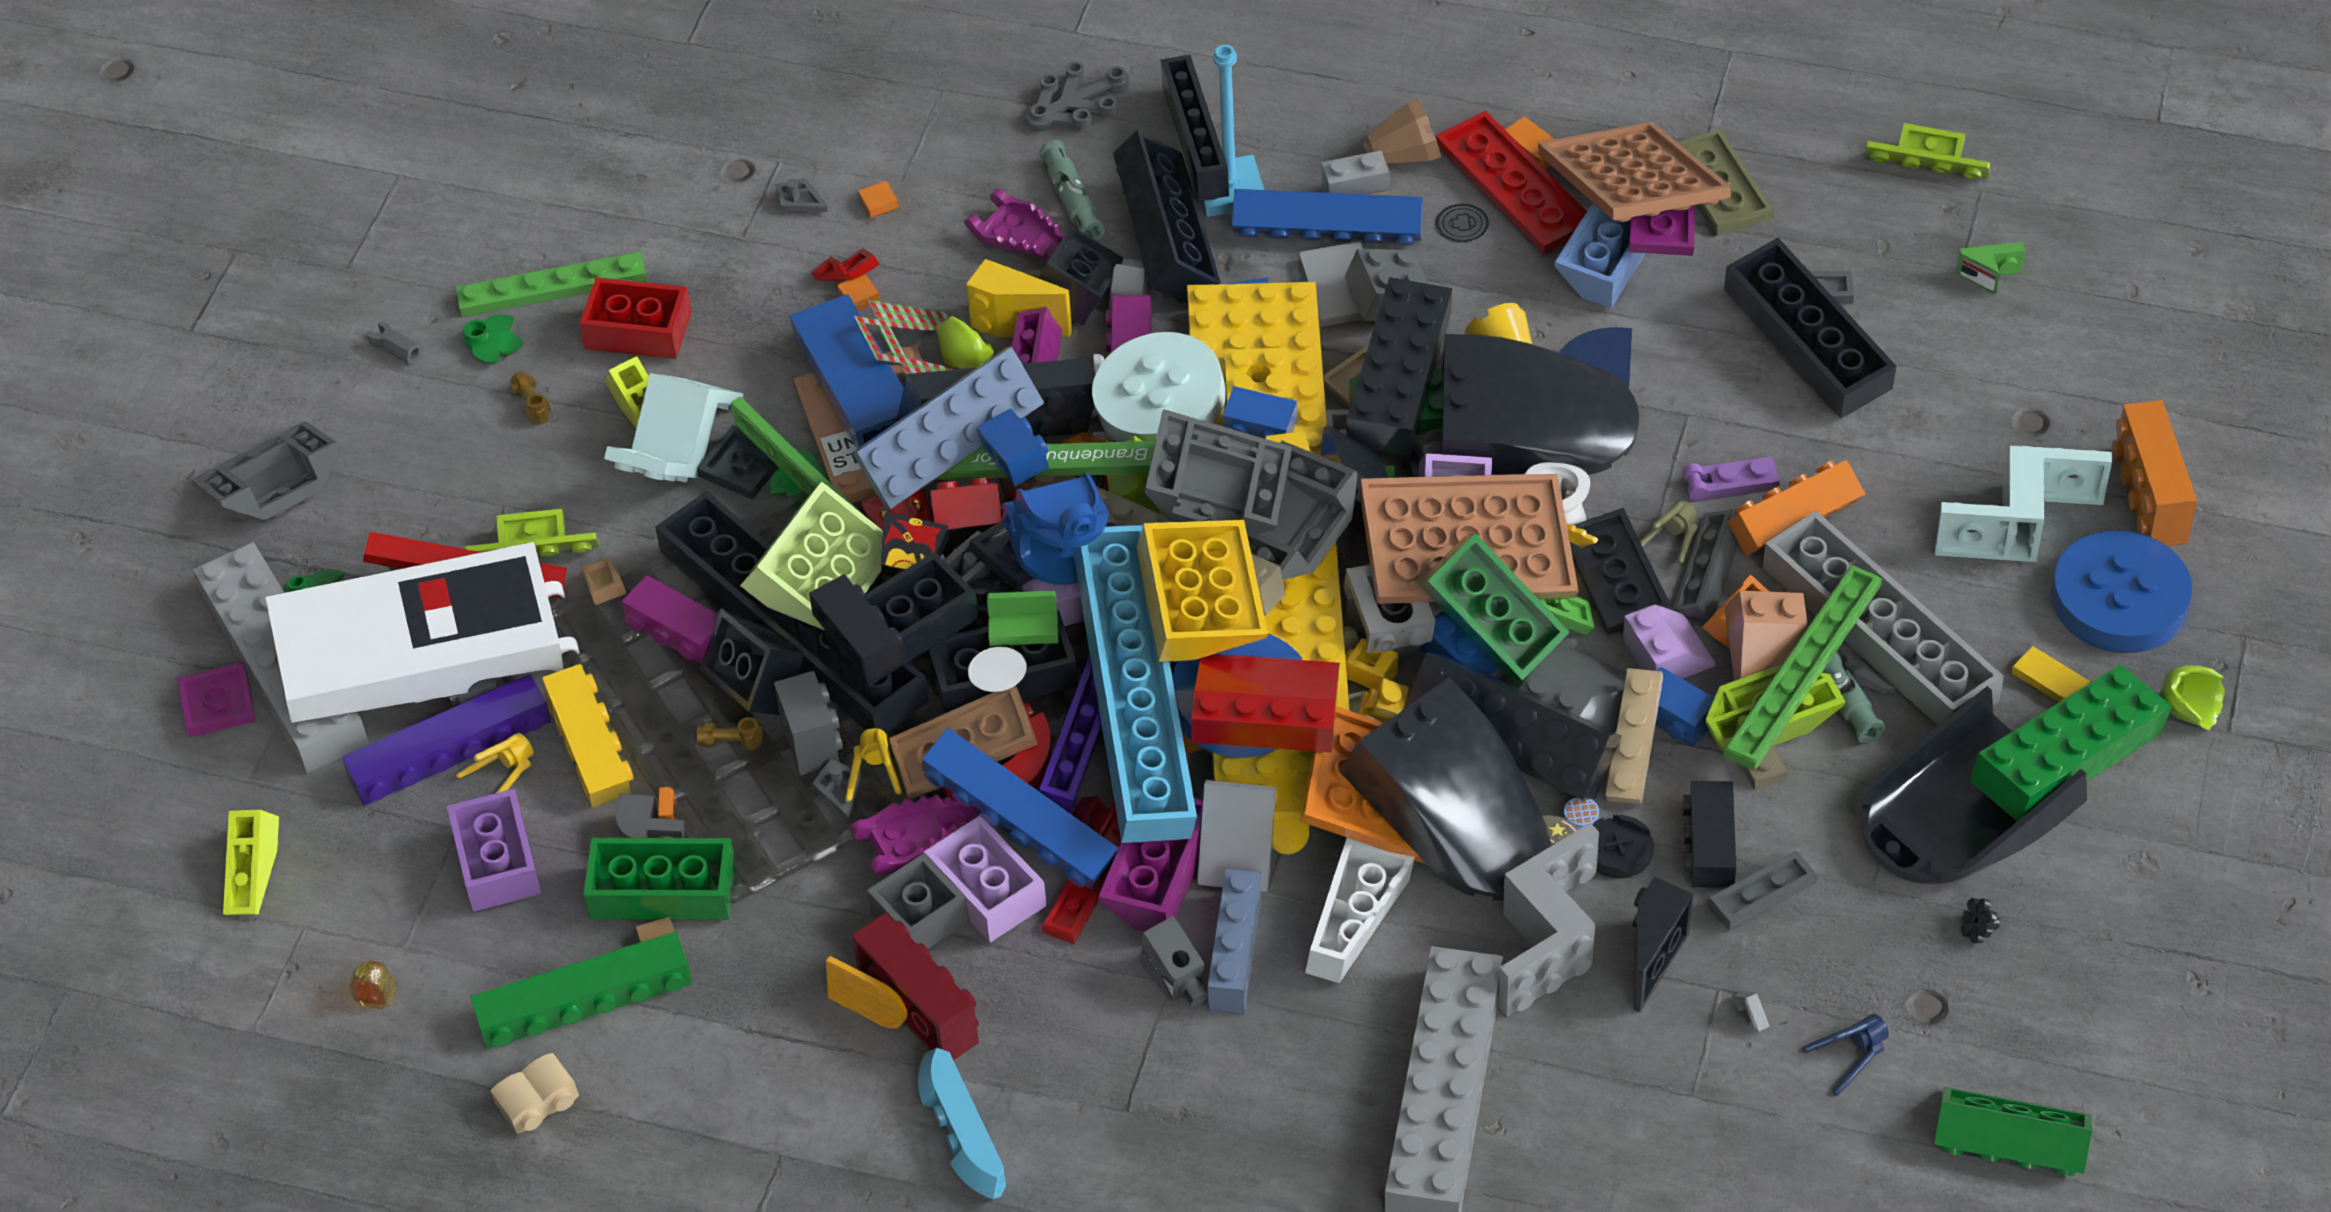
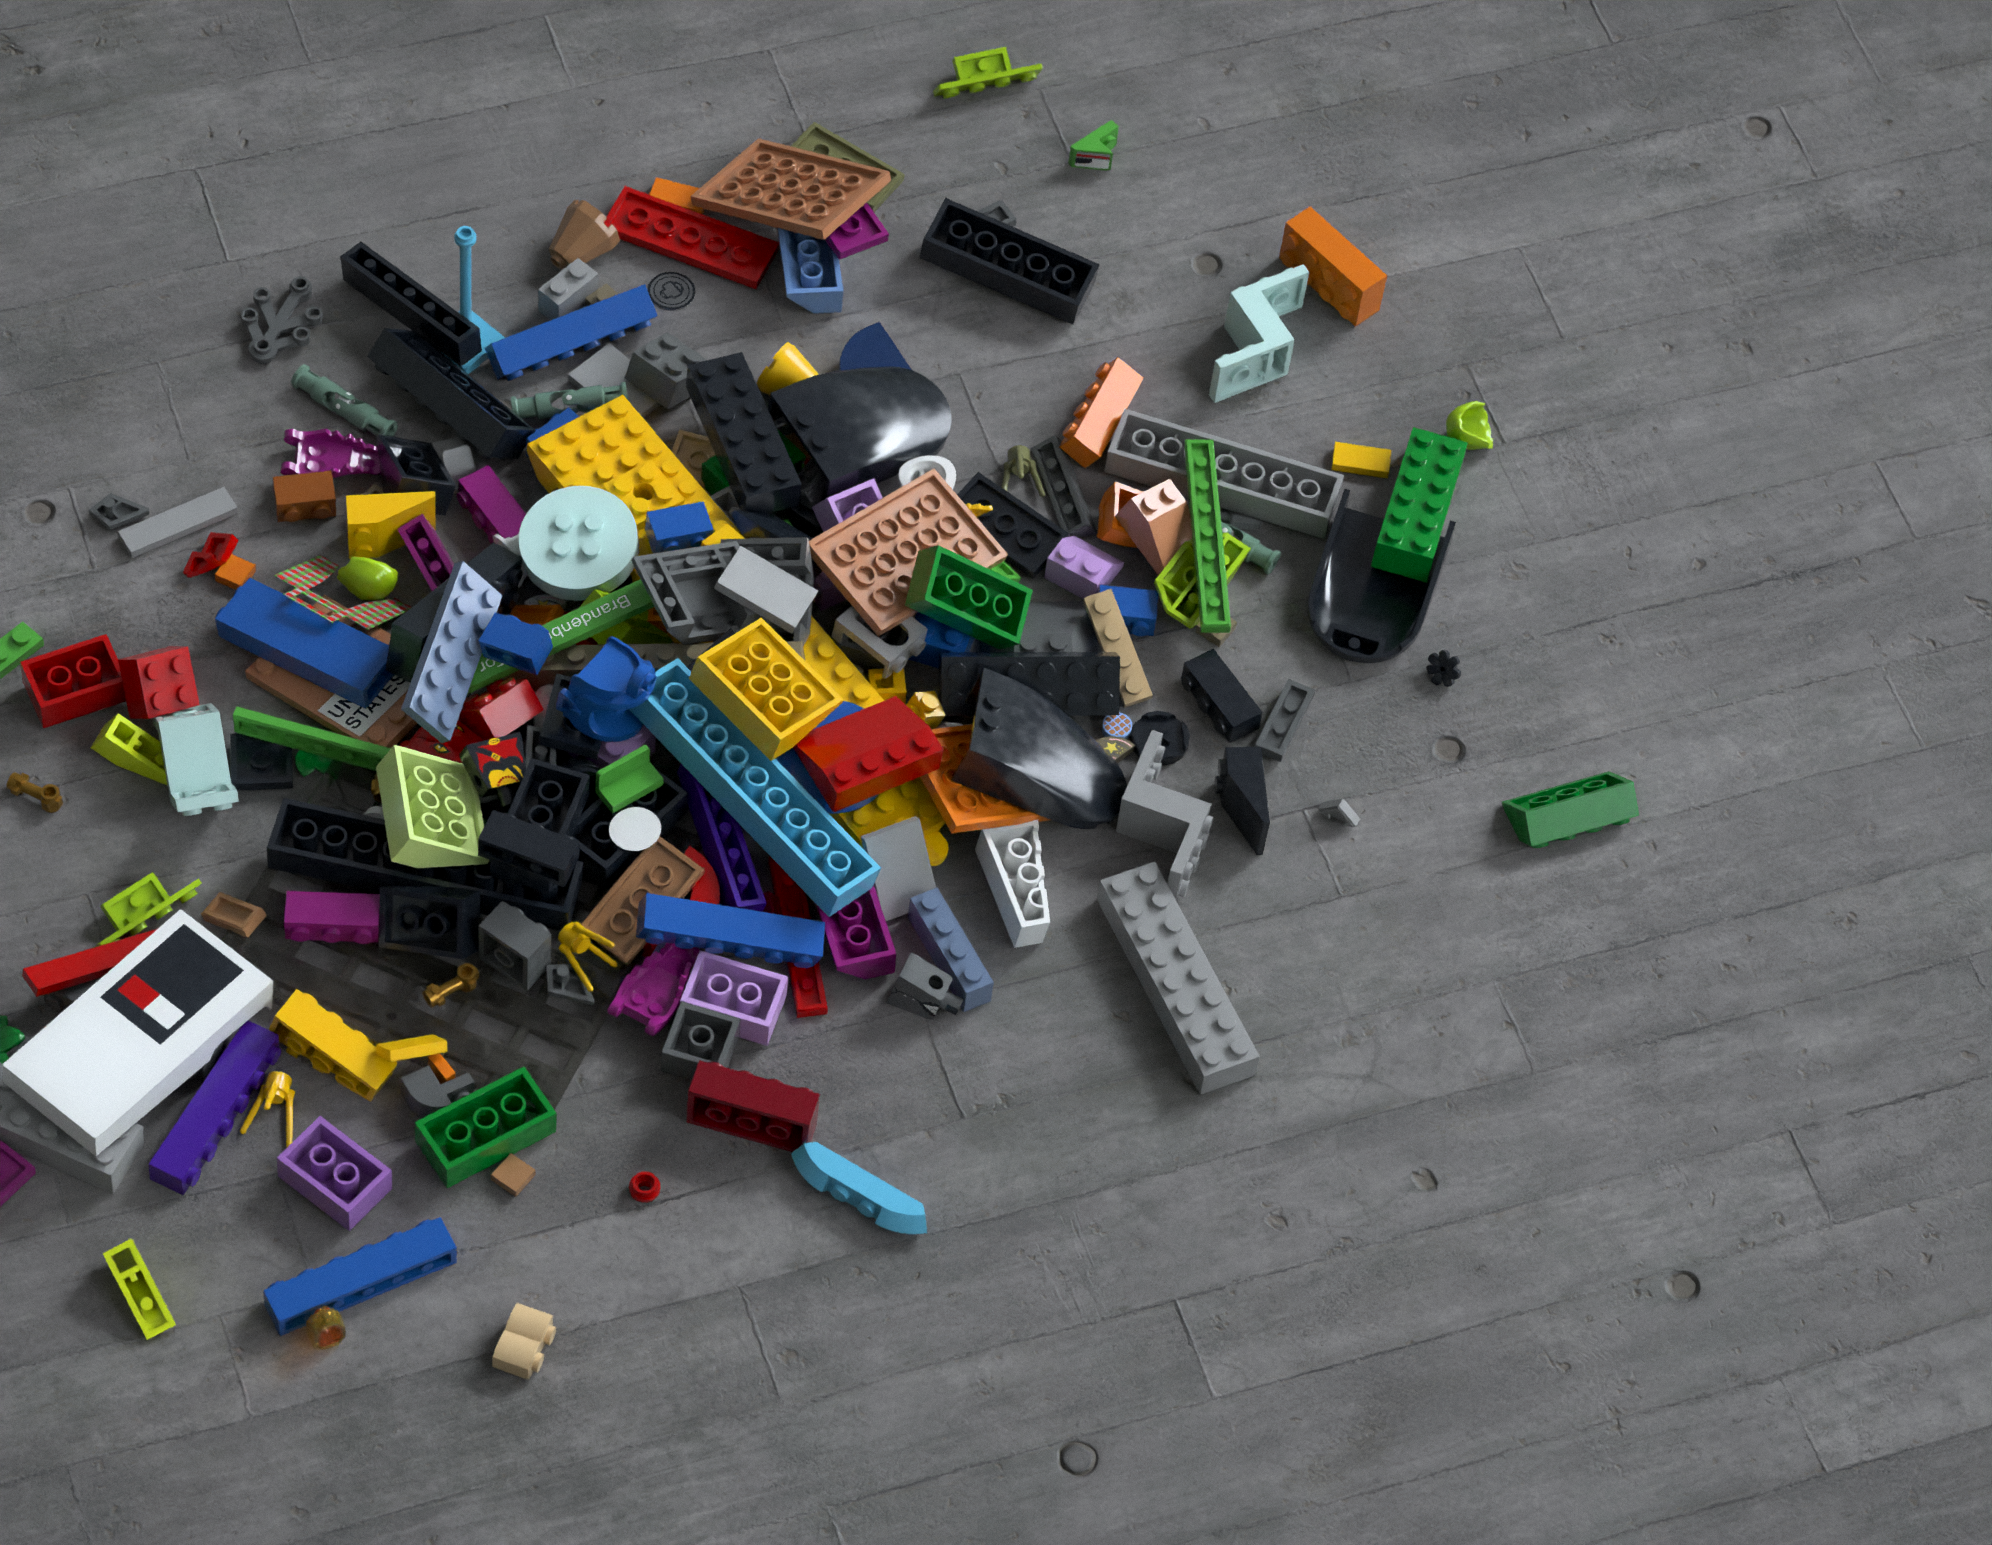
camera: 45 degrees left, 5 degrees up
(442, 953) = (361, 1274): none -> blue brick
(581, 990) = (492, 1245): green brick -> none
(646, 770) = (412, 1048): none -> yellow tile
(696, 347) = (158, 682): none -> red brick
(762, 1005) = (644, 1179): none -> red plate
(844, 228) = (177, 522): none -> light grey tile
(864, 994) = (716, 1133): light orange window -> none
(878, 199) = (185, 483): orange tile -> none
(963, 250) = (304, 496): none -> dark orange brick
(1253, 266) = (581, 400): none -> sand green piece
(1281, 502) = (766, 589): none -> light grey tile
(1730, 478) = (1031, 410): medium lavender plate -> none
(1867, 1034) = (1427, 792): dark blue plant -> none
(2121, 591) = (1365, 369): blue brick -> none

